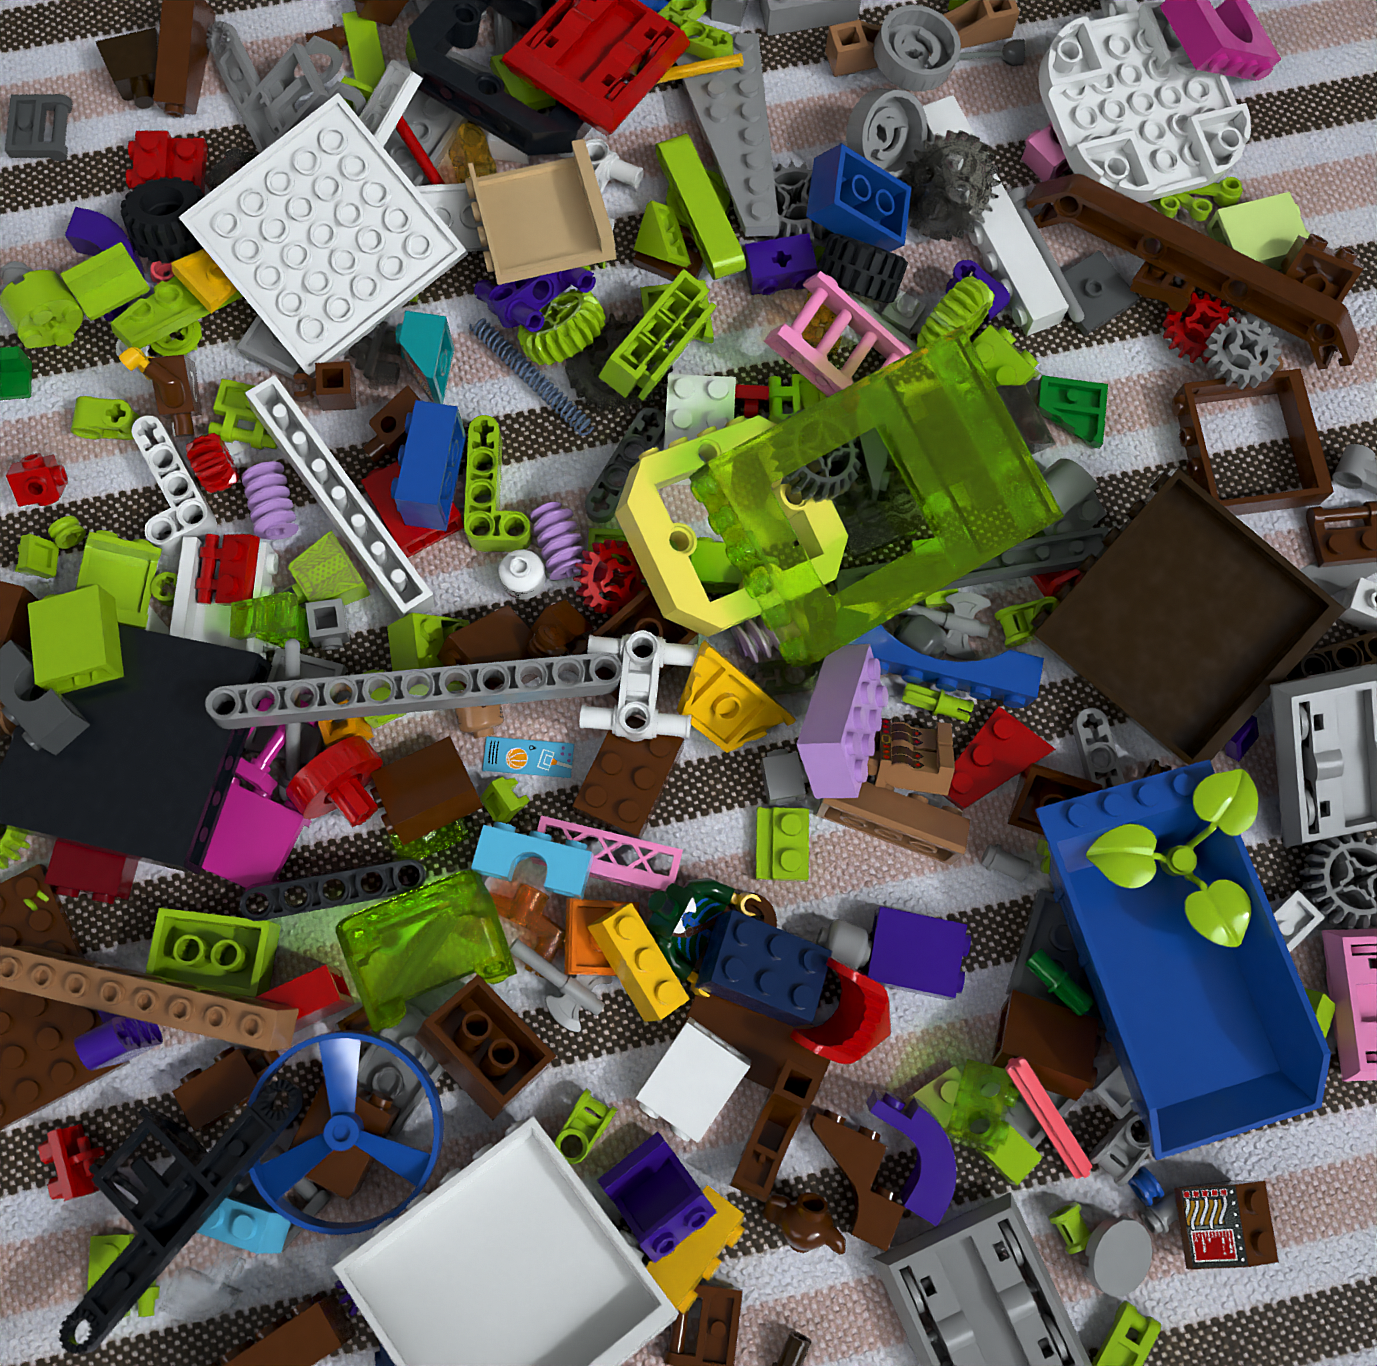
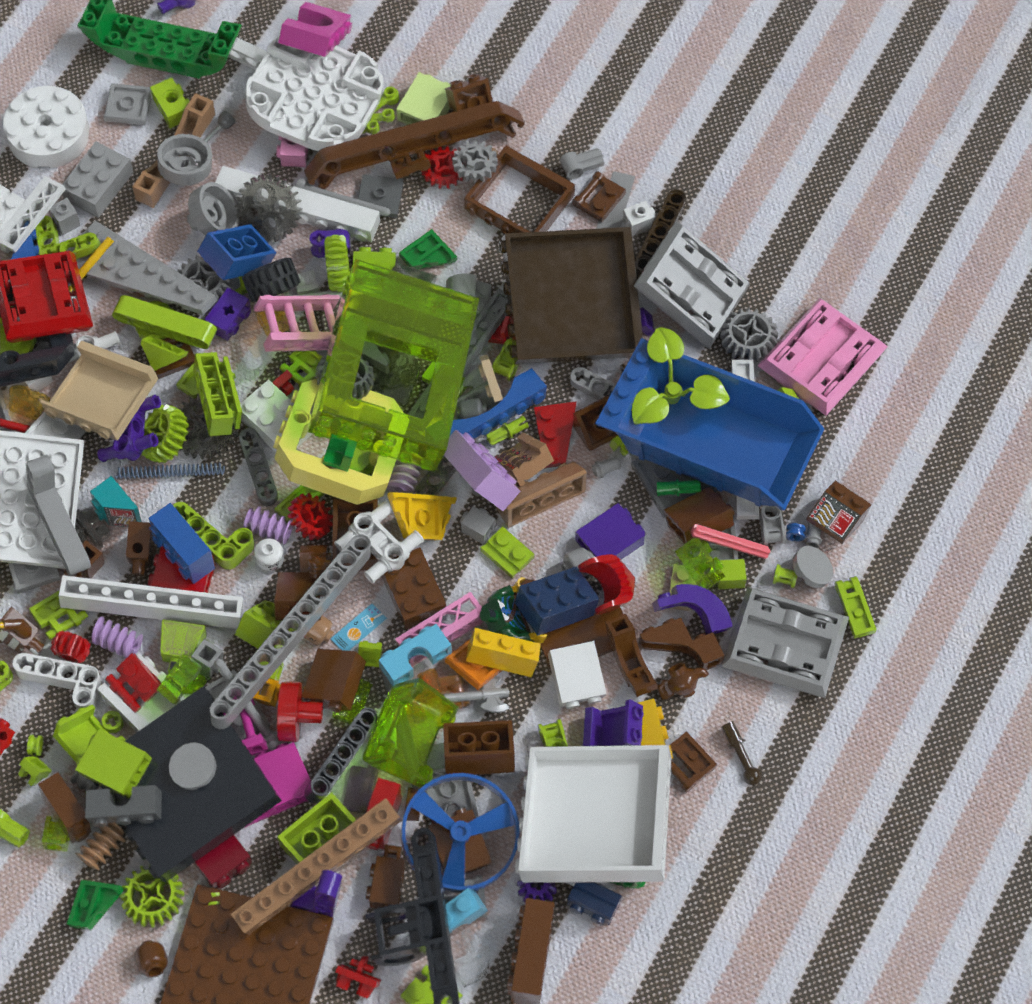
camera: 45 degrees left, 10 degrees down
(142, 733) = (192, 766): none -> light grey tile
(315, 945) = (360, 788): none -> panel
(331, 317) = (41, 486): none -> light grey beam
(698, 539) = (339, 453): none -> green panel
(984, 610) = (487, 371): none -> tan wing

